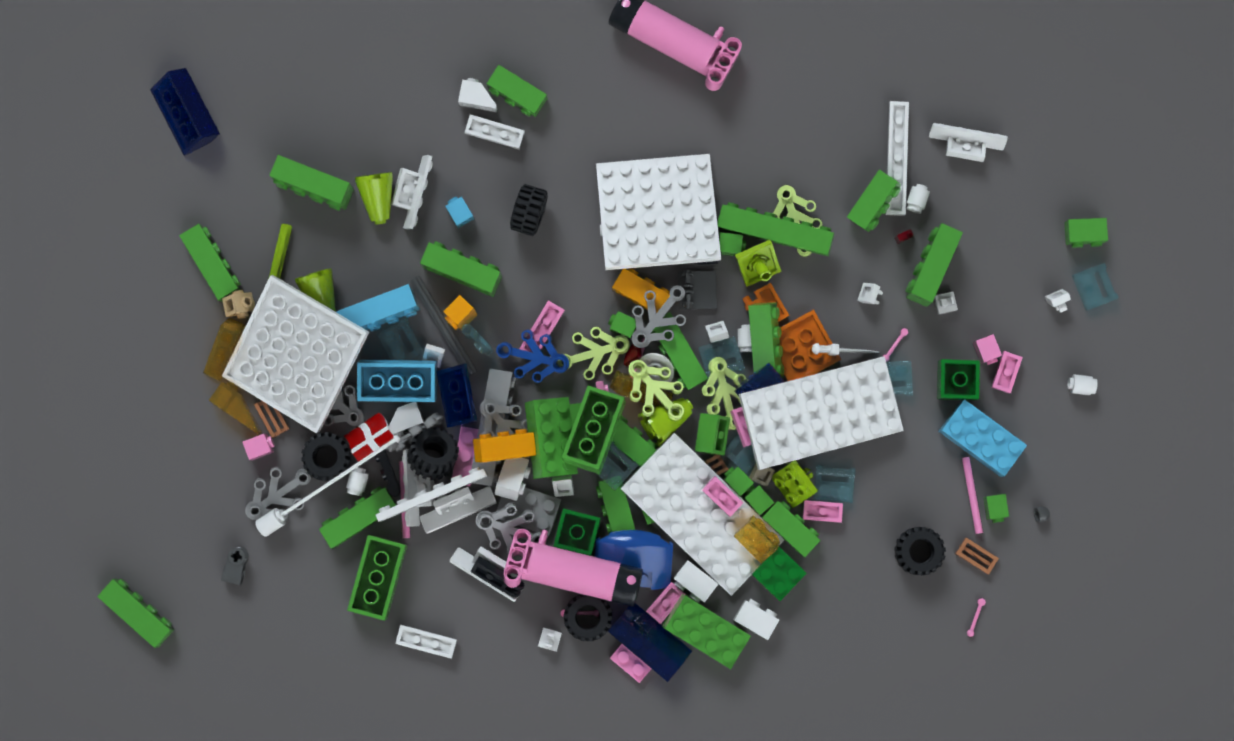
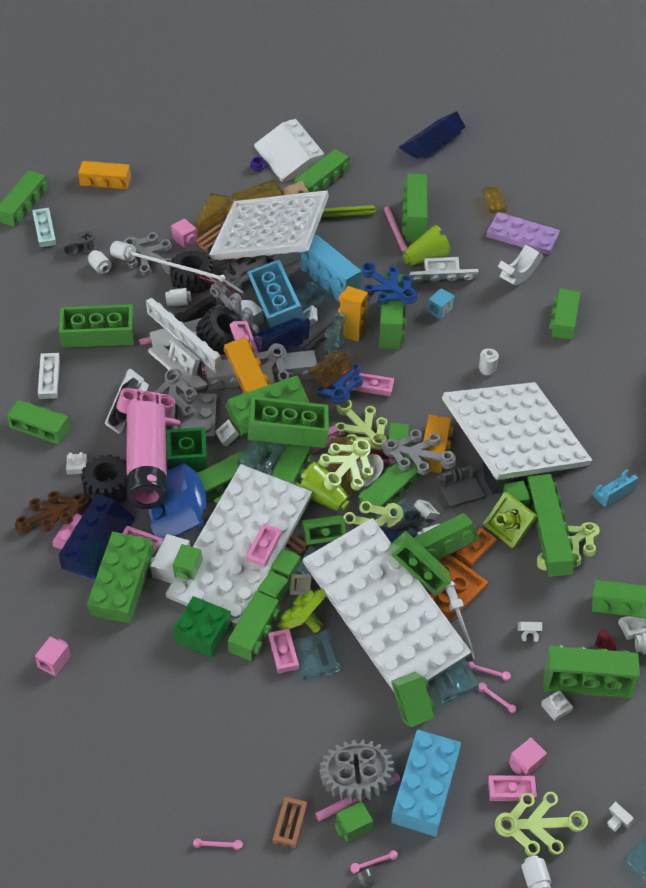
camera: 70 degrees right, 35 degrees down
(127, 510) = (104, 175): none -> light orange brick
(155, 286) = (289, 150): none -> white slope
(157, 328) = (258, 163): none -> dark purple plate
(193, 598) = (44, 227): none -> light aqua plate
(274, 551) = (99, 262): none -> white brick
(317, 87) = (494, 199): none -> clear yellow plate
(319, 287) = (333, 230): lime cone -> none
(325, 213) = (395, 228): none -> bright pink bar
(357, 518) = (132, 293): bright green brick -> none
(378, 78) = (522, 233): none -> lavender plate
(436, 107) = (522, 267): none -> white arch
(446, 263) = (406, 295): none -> blue plant
(457, 435) = (241, 329): none -> bright pink plate
(475, 96) = (544, 289): white slope -> none
(487, 664) = (38, 421): none -> bright green brick
(494, 132) = (522, 310): white plate -> none
(511, 478) = (219, 388): white brick -> none
(522, 361) = (331, 368): none -> clear orange hinge
(528, 210) = (466, 338): black tyre -> none
(558, 204) = (488, 361): none -> white brick
(605, 673) = (74, 504): none -> reddish brown plant
(717, 569) = (187, 562): none -> bright green brick
(732, 357) = (410, 521): none -> black bar
(748, 149) = (615, 490): none -> medium azure hinge
(756, 619) = (147, 622): white brick -> none
(757, 539) = (232, 590): clear yellow bracket -> none
(764, 708) = (53, 655): none -> bright pink brick
(795, 368) = (420, 563): none -> bright green brick
(908, 356) = (483, 688): none -> bright pink hinge
(911, 421) = (413, 699): none -> bright green brick
(936, 551) = (273, 737): black tyre -> none
(951, 506) = (339, 770): none -> light grey gear
(958, 379) = (480, 735): green brick -> none
(1028, 518) = (355, 867): none -> bright pink hinge
(1043, 366) = (536, 823): none -> yellowish green plant

